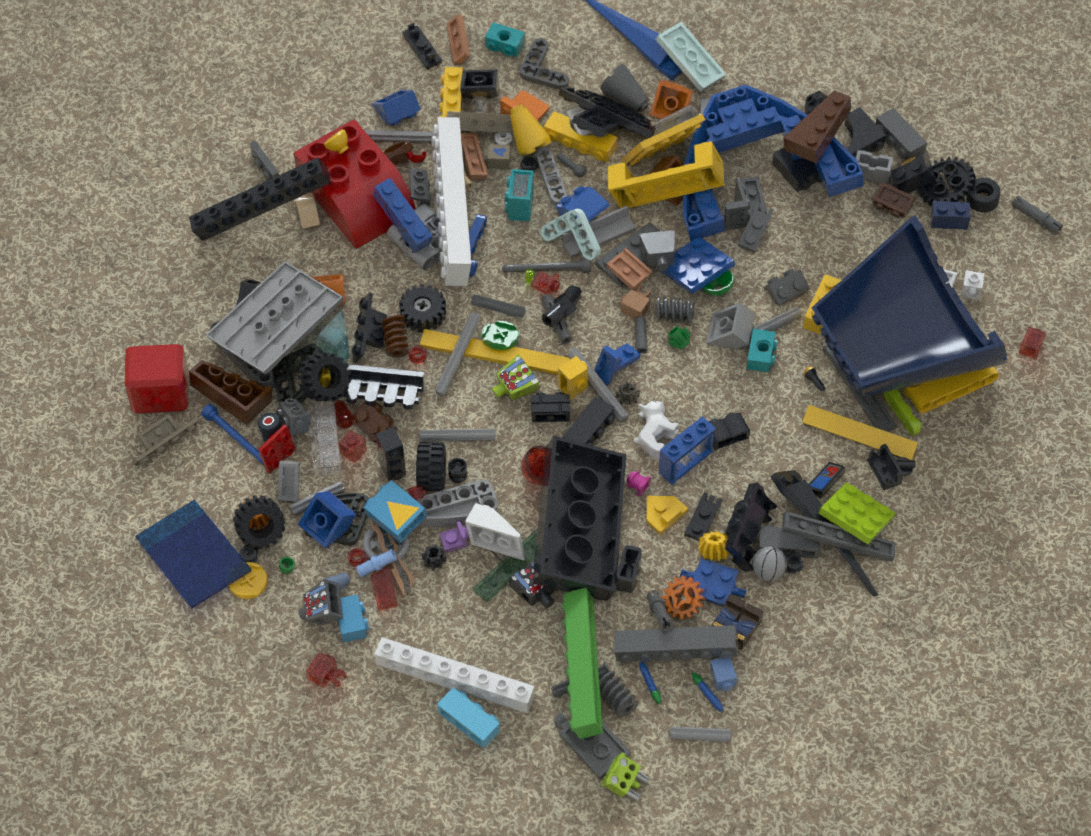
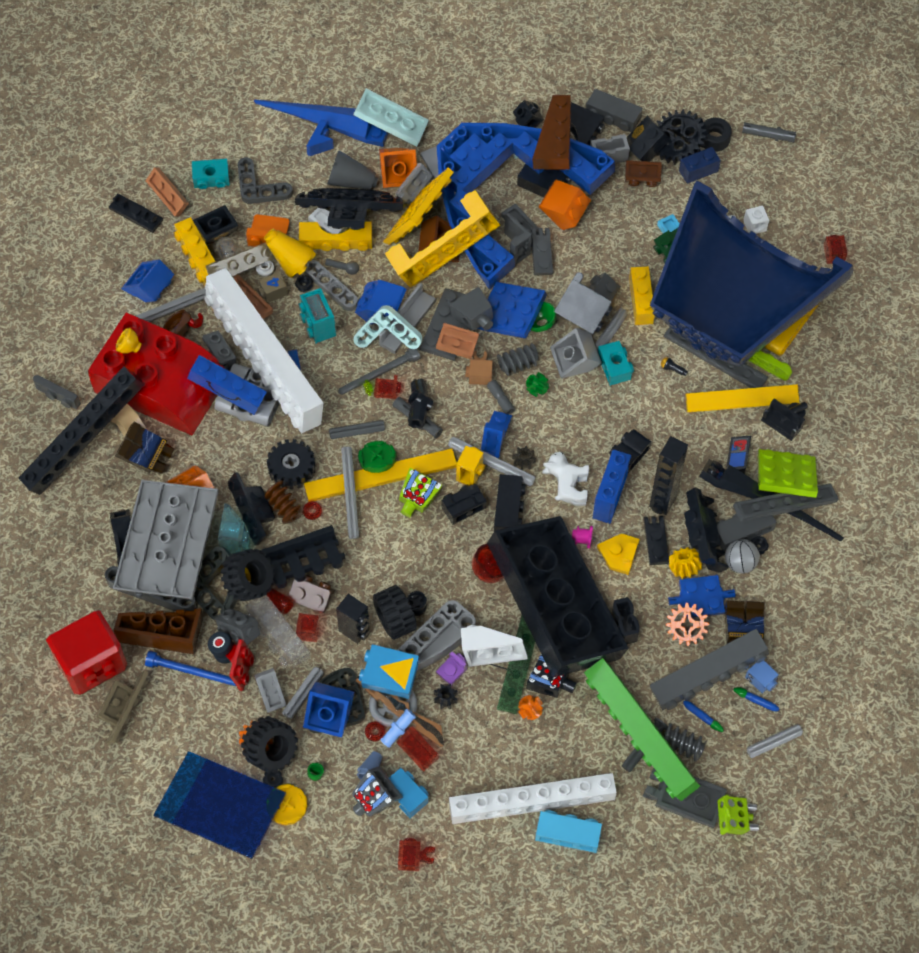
camera: 30 degrees left, 5 degrees up
(307, 245) = (143, 449): none -> hips
(416, 492) = (398, 643): clear red plate -> none
(457, 434) = (394, 569): light grey axle -> none
(500, 600) = (530, 707): none -> orange gear
(617, 50) = (319, 140): none -> blue slope
(658, 606) = (670, 643): dark grey pin -> none
(733, 458) = (668, 475): none -> black brick
(758, 286) = (583, 305): none -> container
(800, 195) = (564, 204): none -> orange slope

